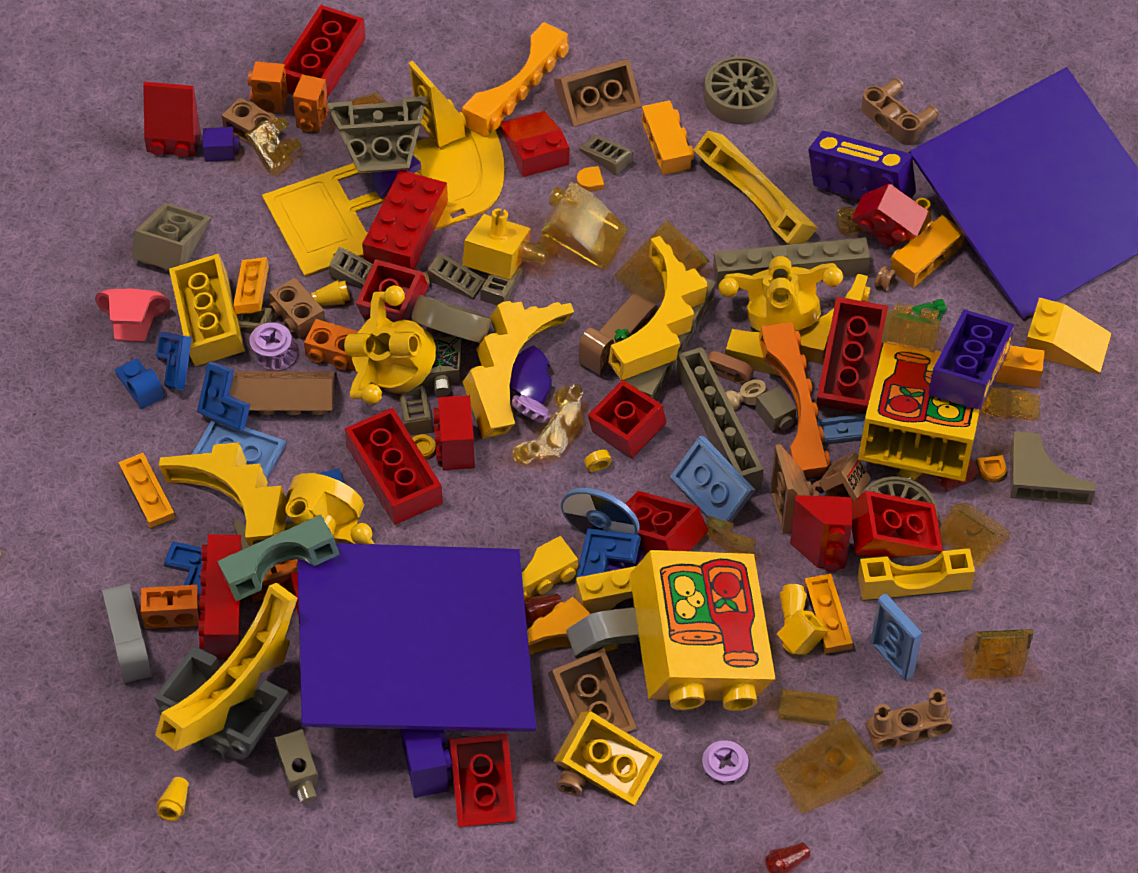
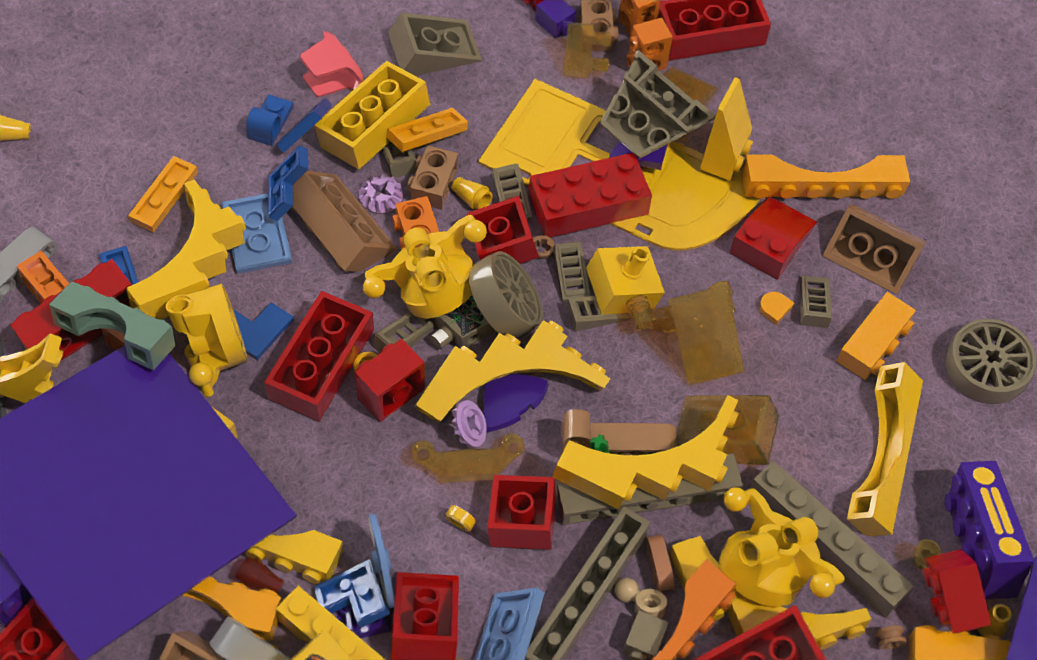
camera: 50 degrees right, 5 degrees up
(267, 332) = (387, 171): lavender gear -> none

